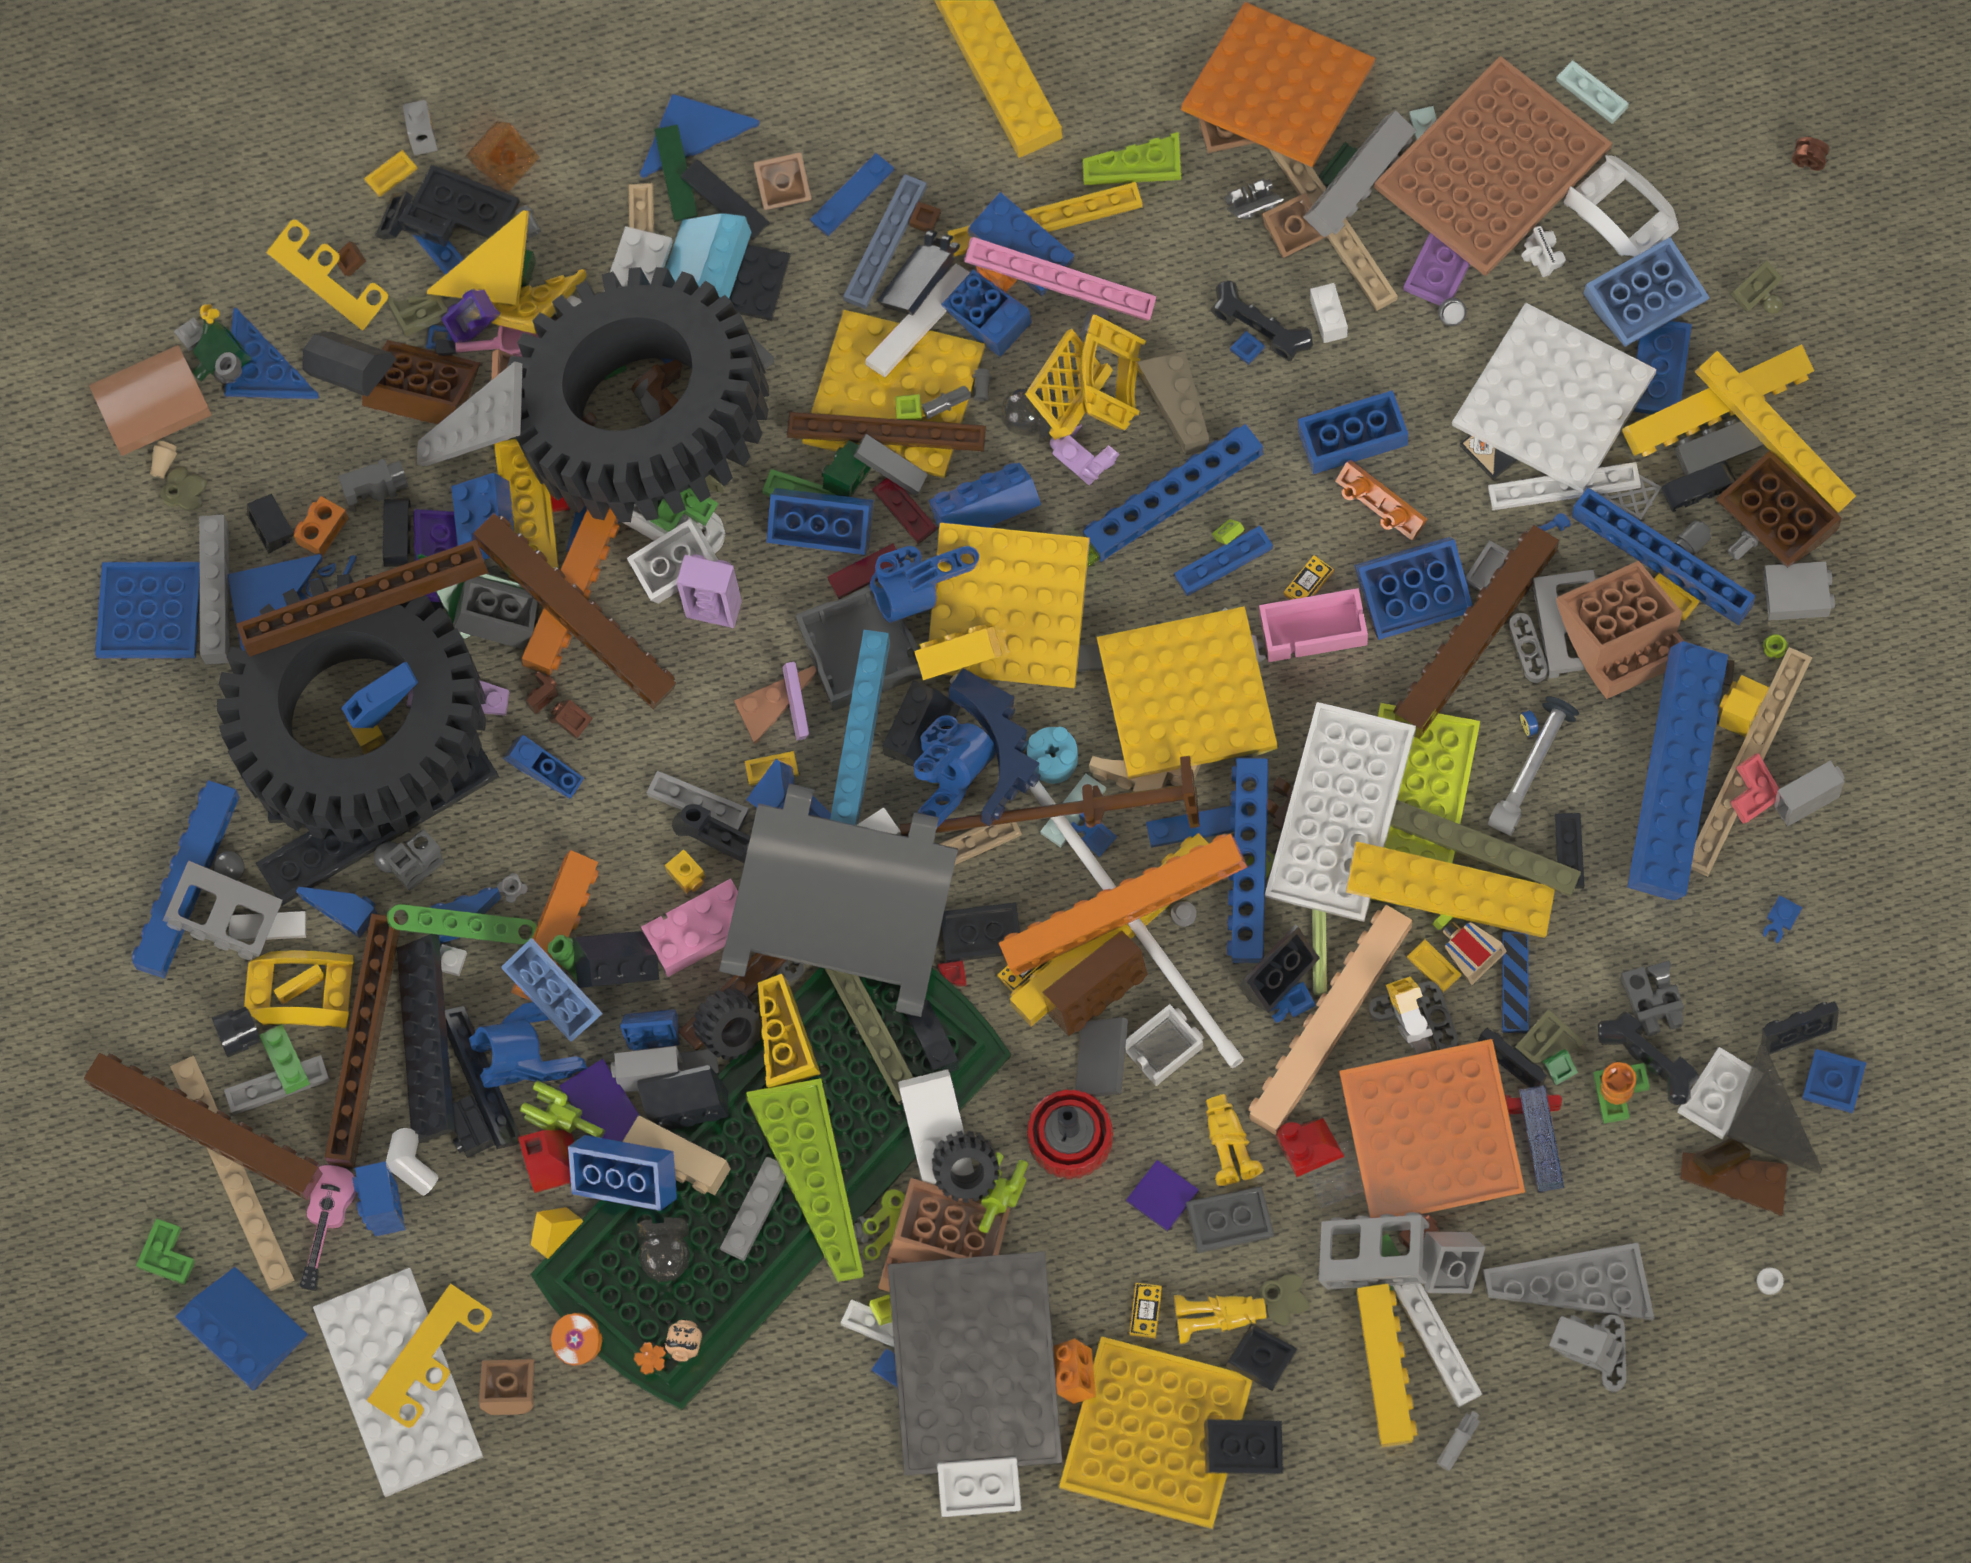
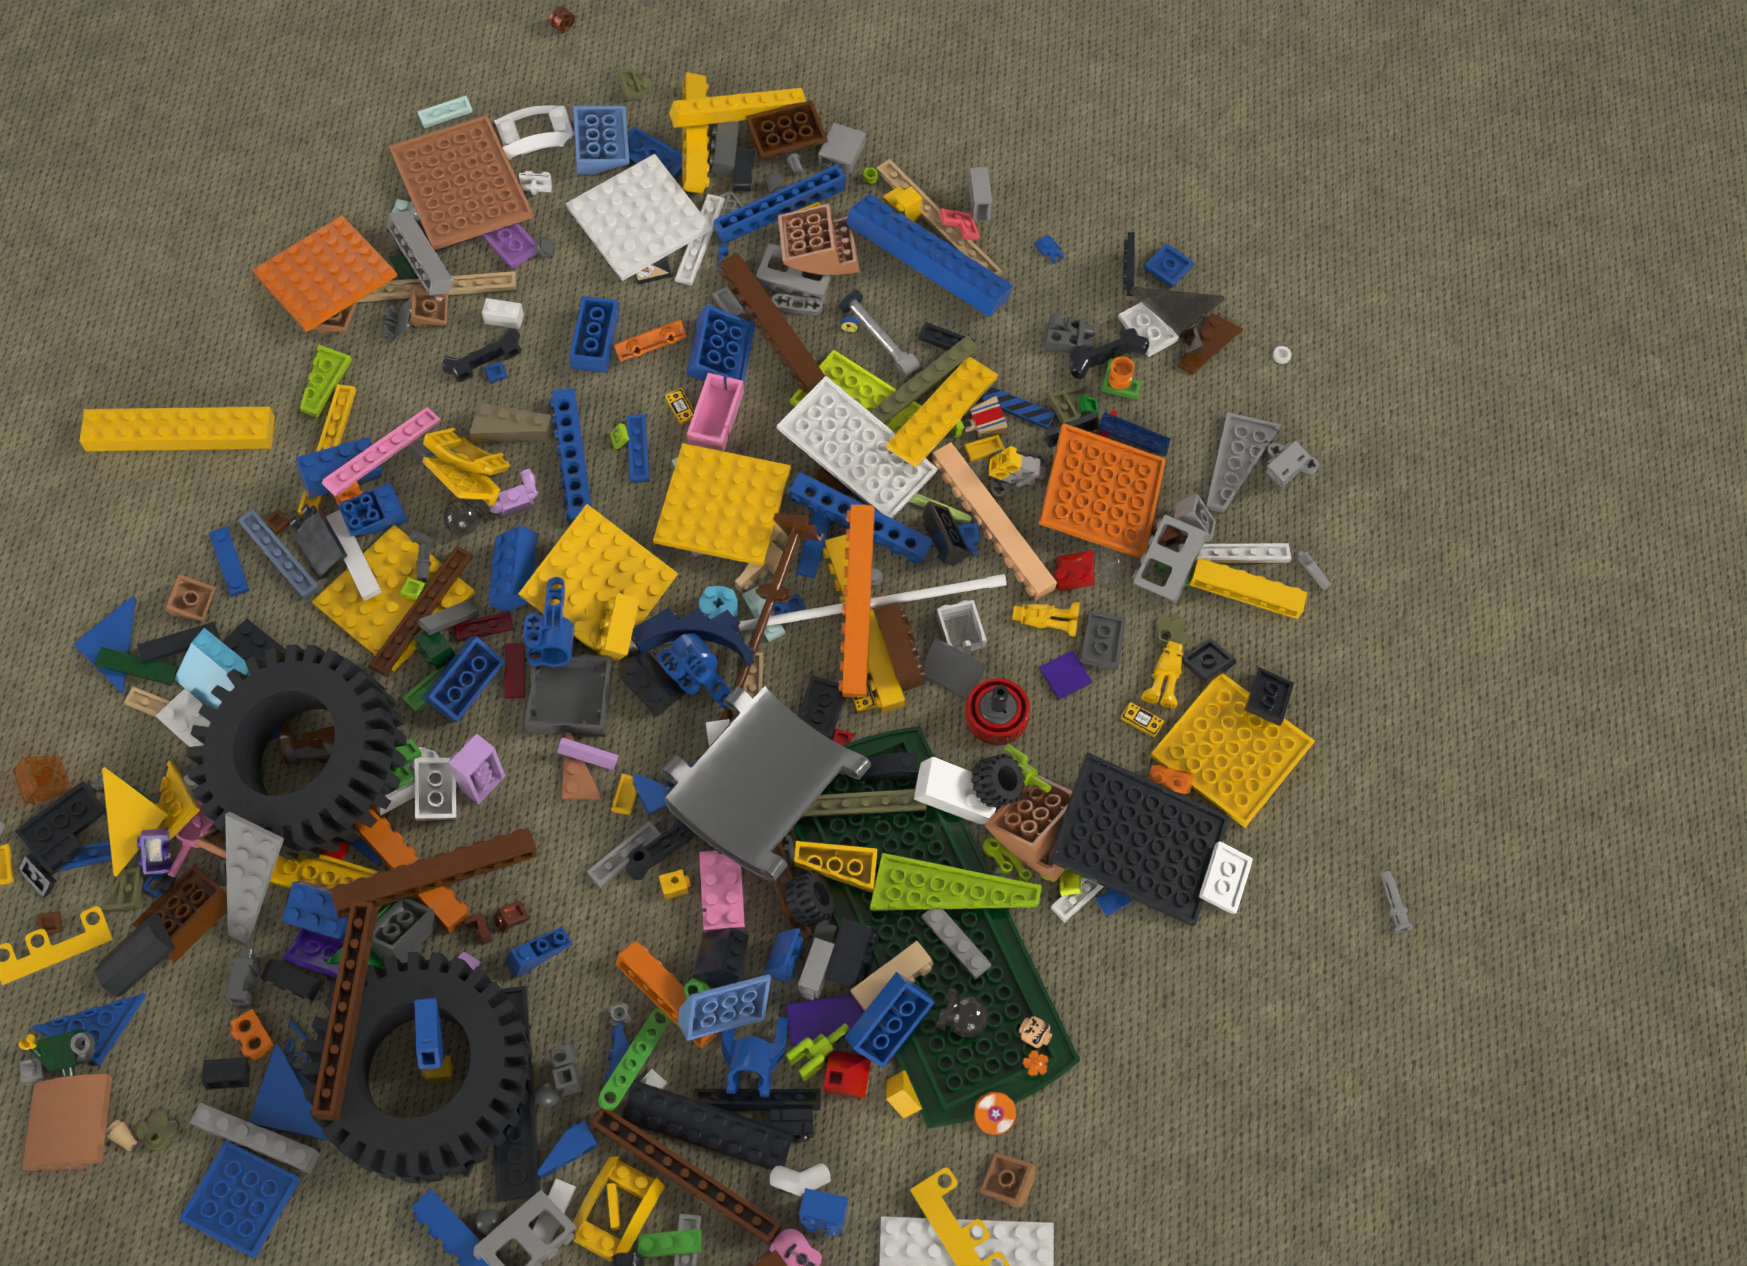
camera: 75 degrees left, 5 degrees down
(860, 727) = (637, 714): dark azure brick -> none

